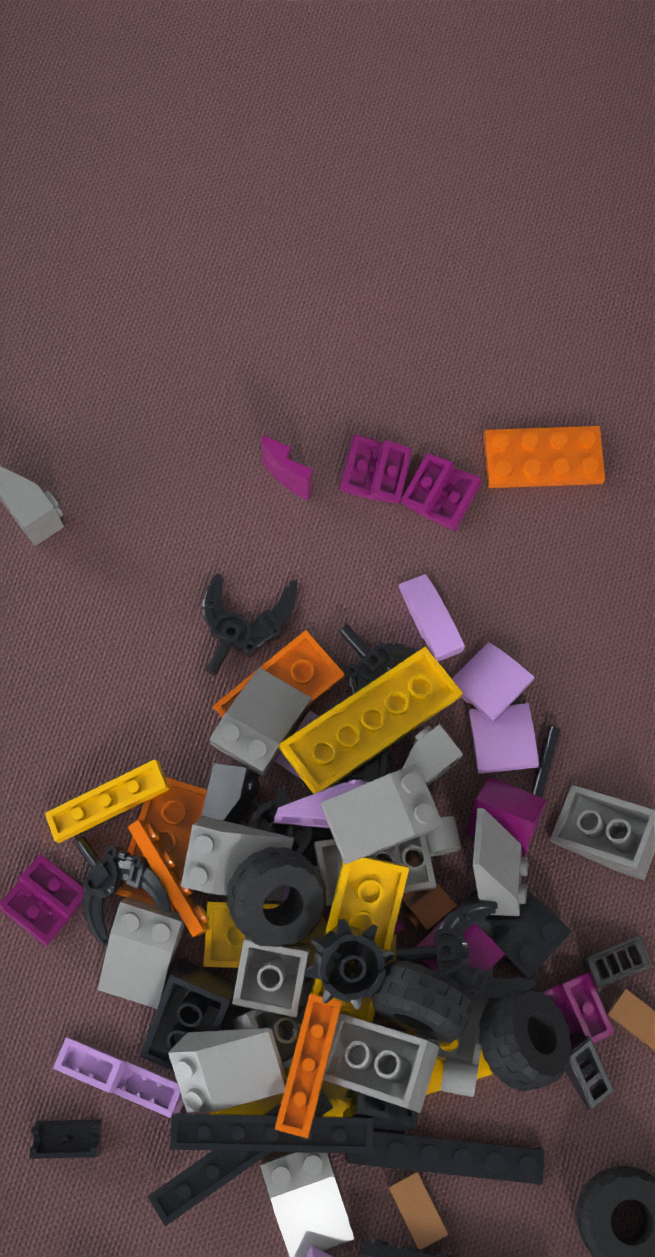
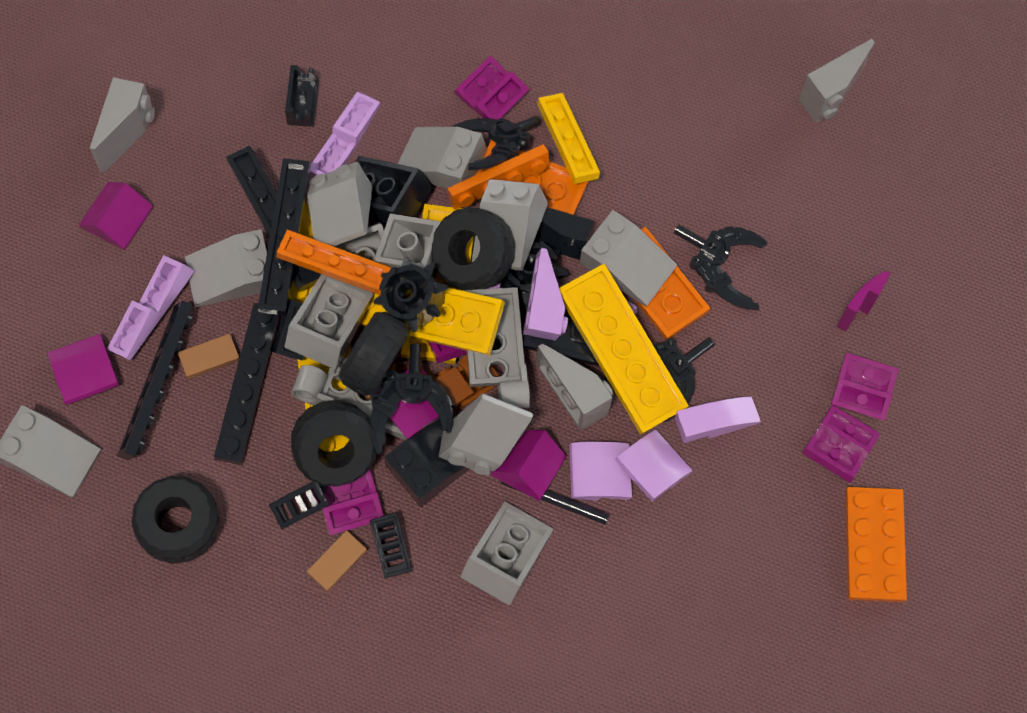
camera: 95 degrees right, 5 degrees down
(381, 814) = (533, 329): light grey slope -> none

